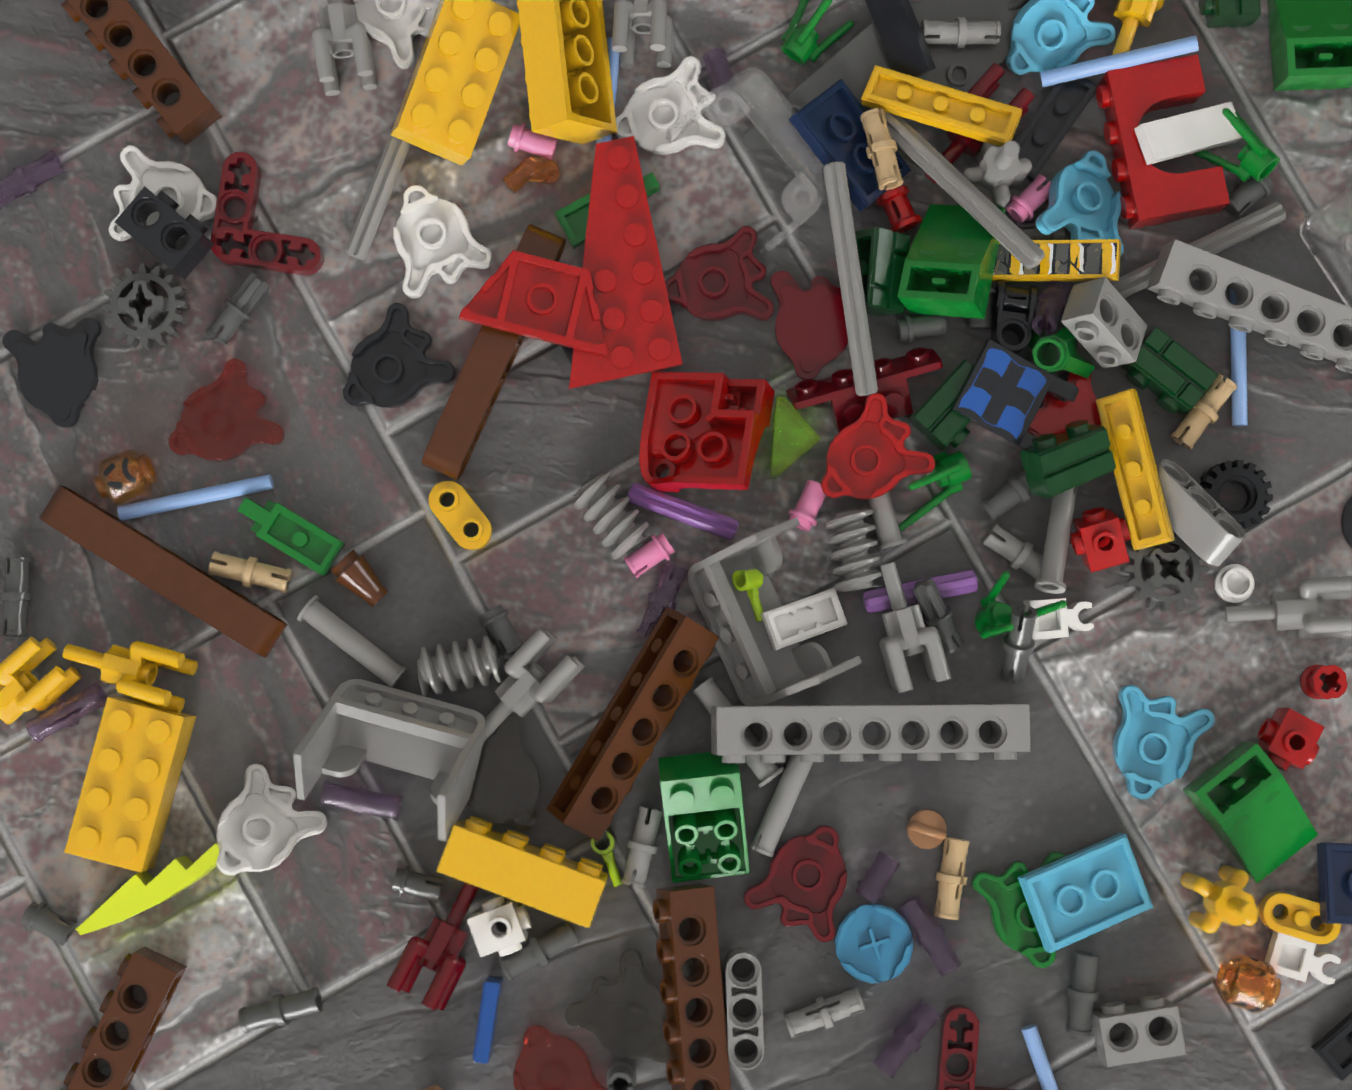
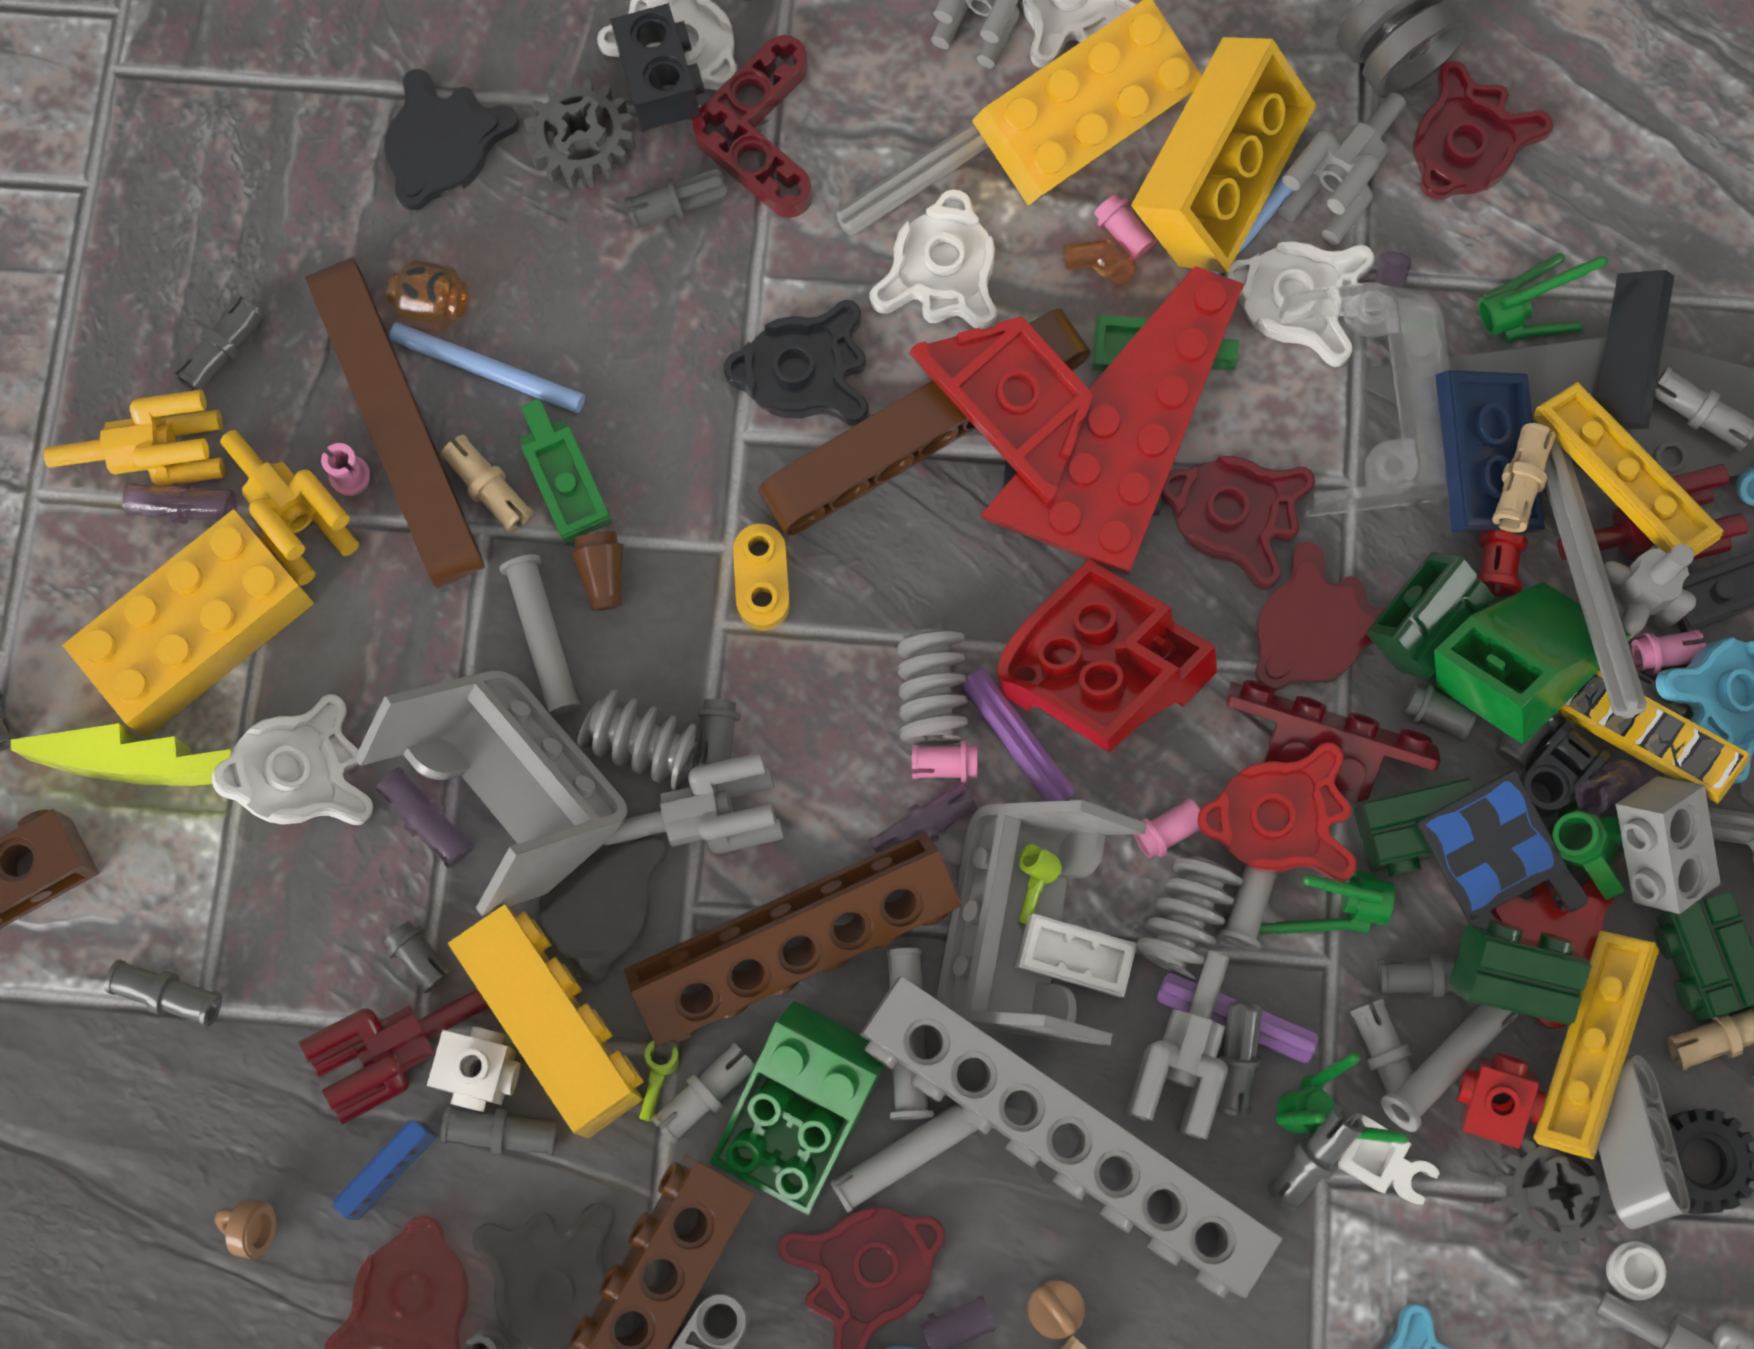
camera: 40 degrees right, 10 degrees down
(161, 631) = (339, 470): none -> bright pink pin
(223, 418) = (577, 303): clear red tile -> none
(790, 438) = (1200, 737): clear neon green slope -> none
(850, 278) = (1390, 596): light grey axle -> none

